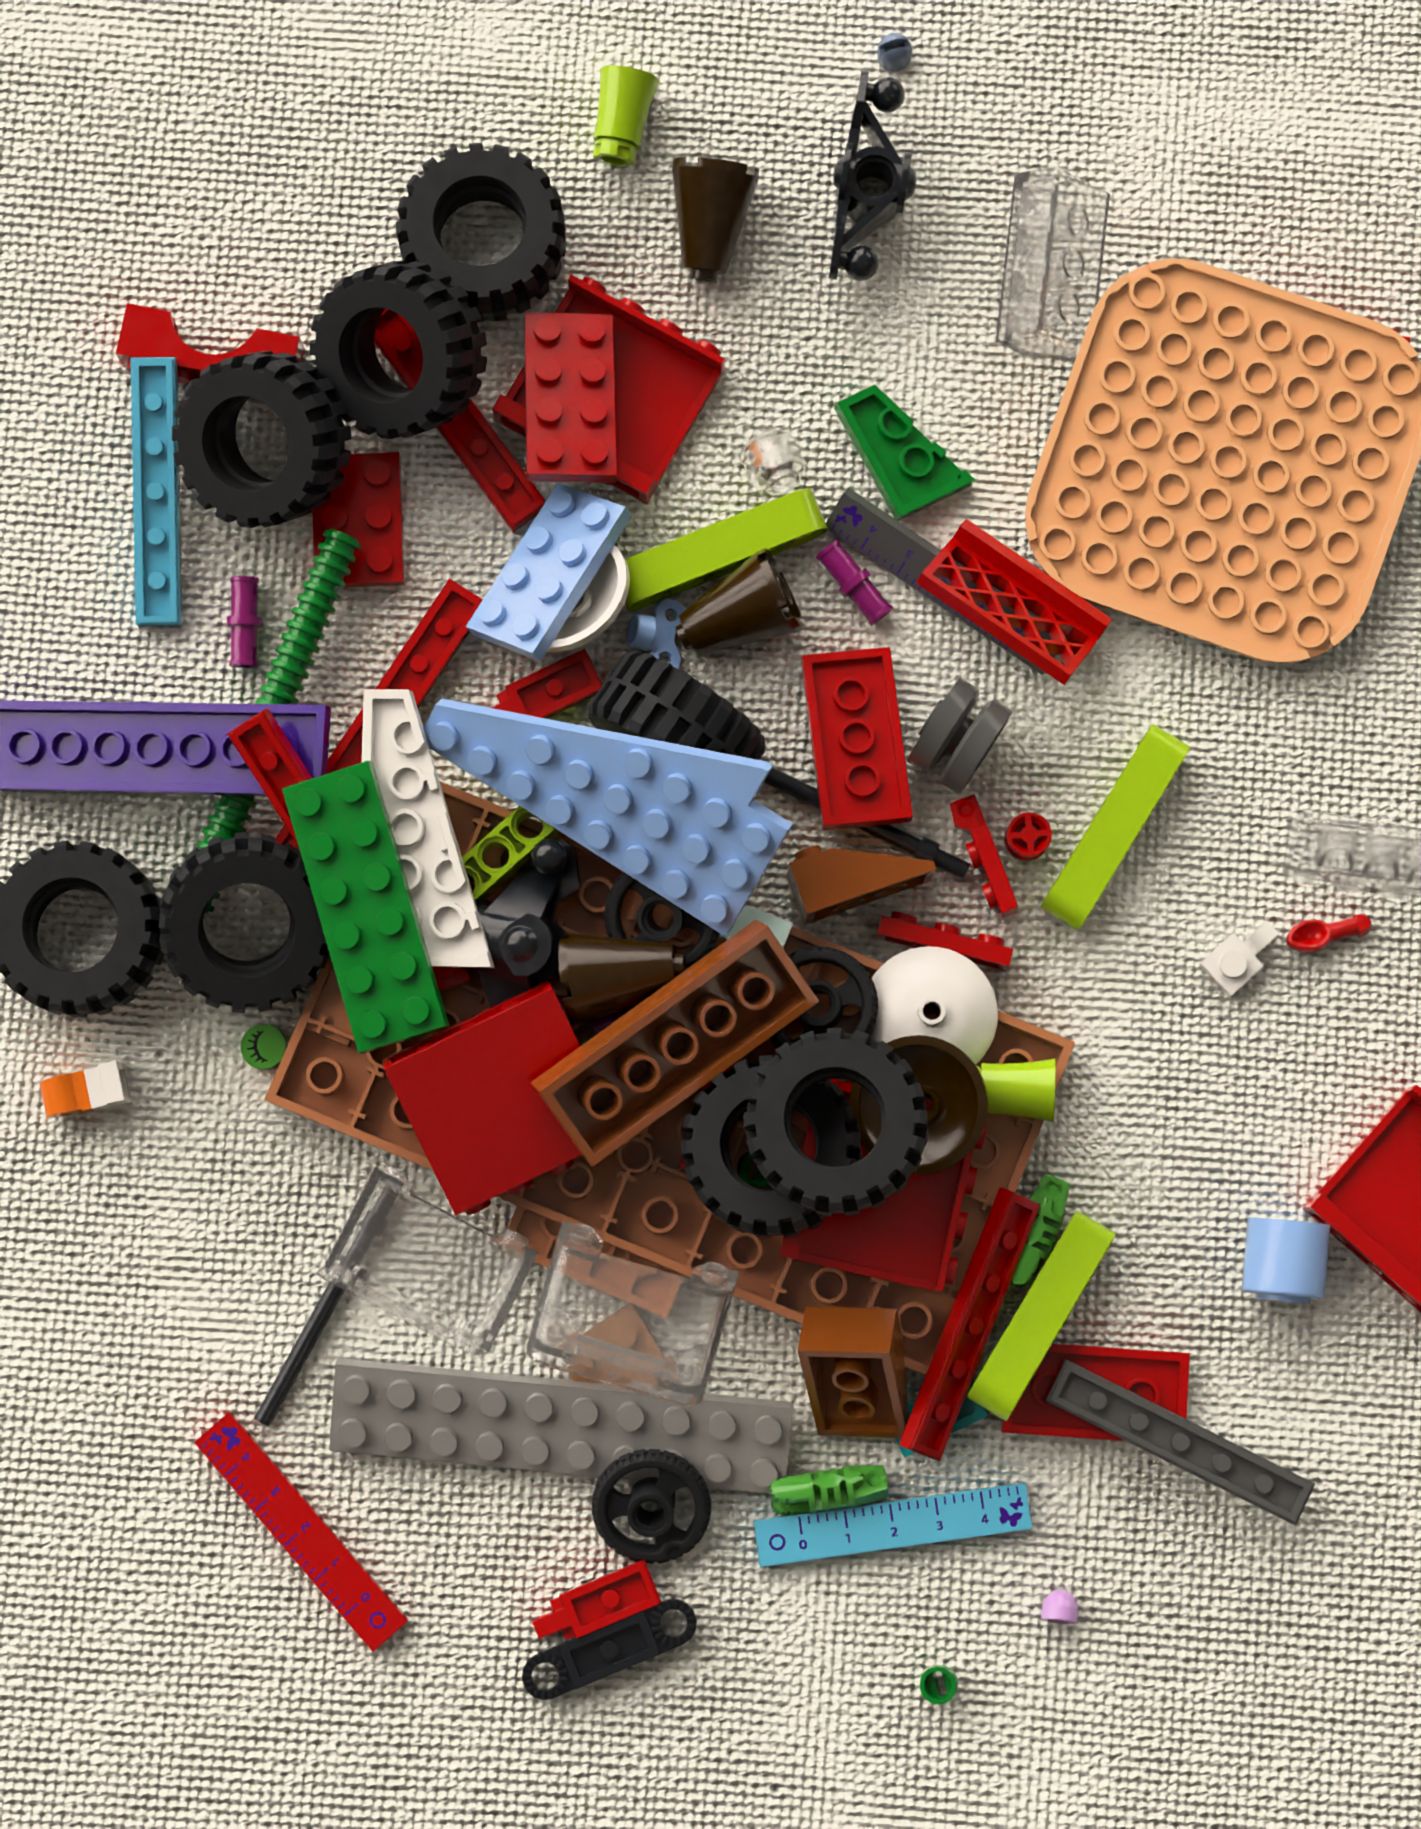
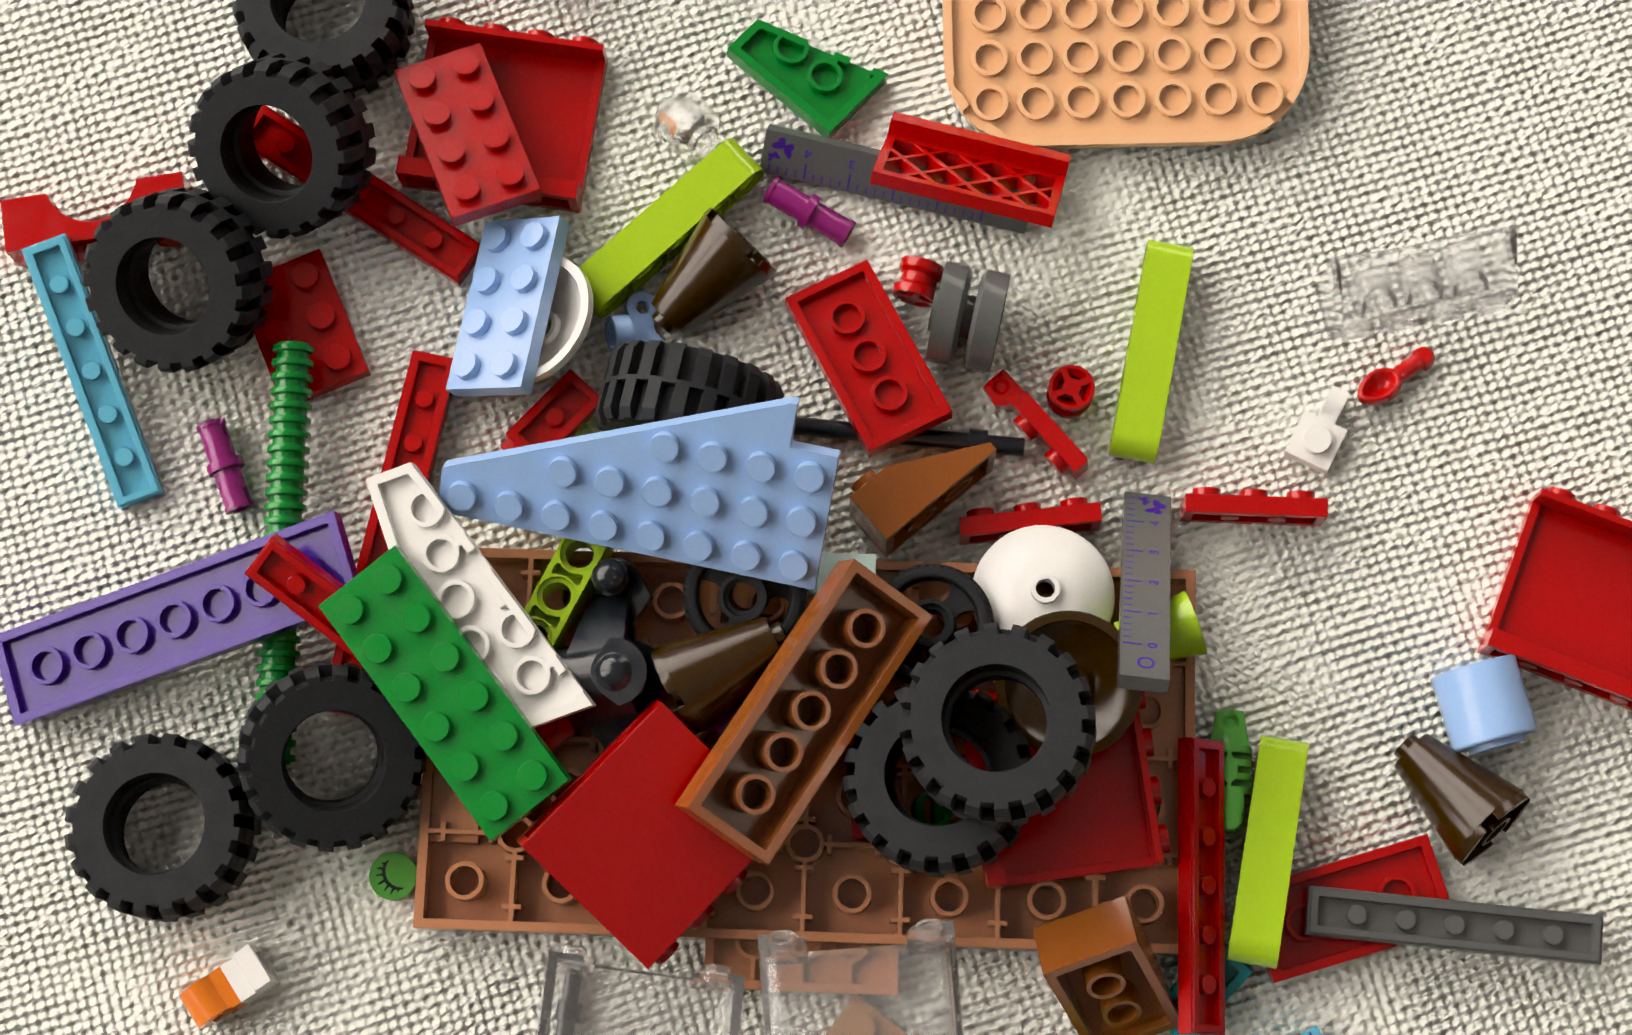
camera: 15 degrees left, 5 degrees down
(928, 683) = (917, 281): none -> red wheel
(1018, 1047) = (1145, 593): none -> dark grey tile
(1151, 1003) = (1253, 507): none -> red plate
(1230, 1330) = (1458, 795): none -> dark brown cone

